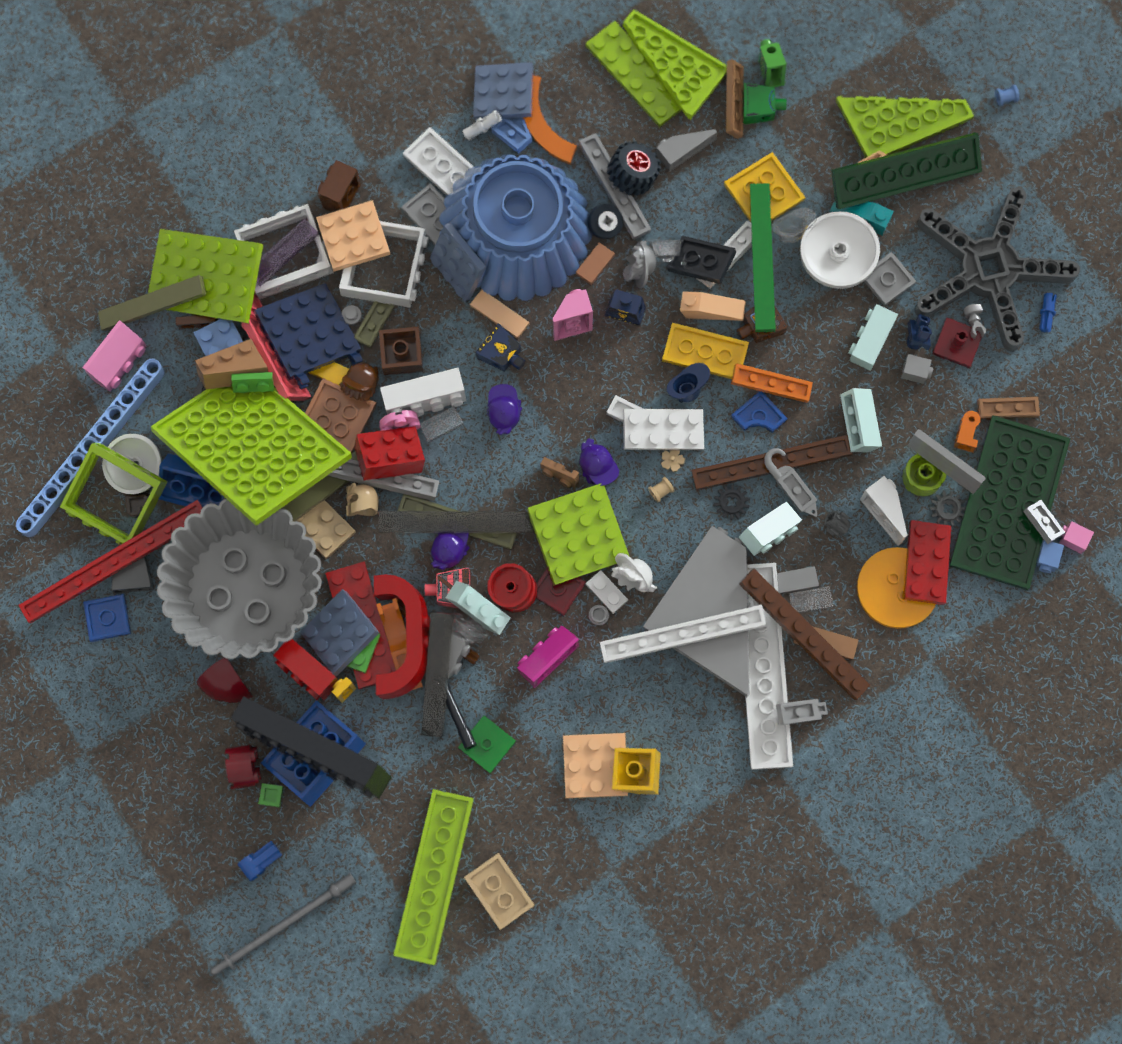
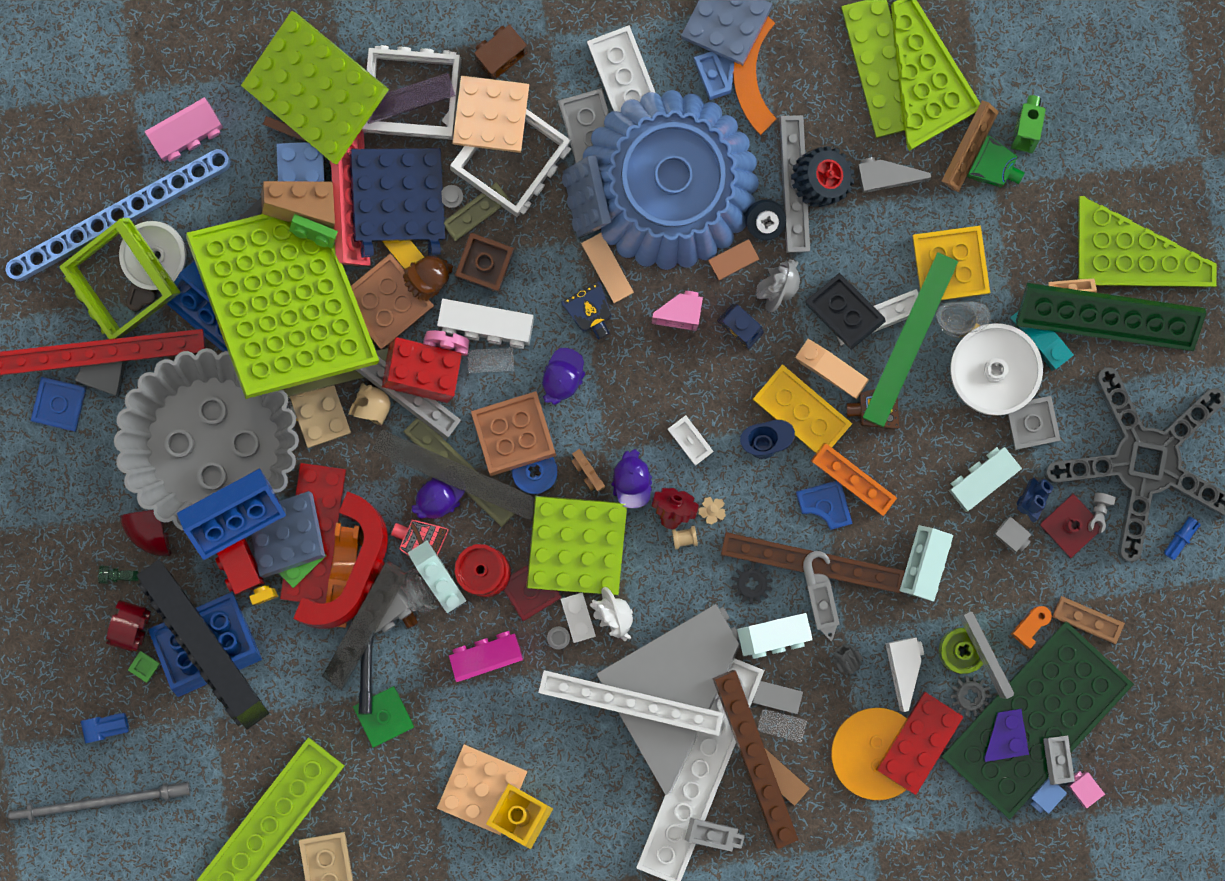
camera: 20 degrees right, 10 degrees up
(152, 302) = (247, 90): olive tile -> none
(220, 729) = (115, 575): none -> clear green piece
(286, 624) = (231, 514): none -> blue slope
(482, 125) = (685, 50): white pin -> none
(486, 470) = (513, 433): none -> nougat plate
(509, 485) = (537, 484): none -> blue plate
(641, 469) = (674, 507): none -> dark red plant
(663, 429) = (717, 475): white plate -> none
(666, 248) = (814, 279): clear piece -> none
(994, 524) = (1007, 737): none -> dark purple wing

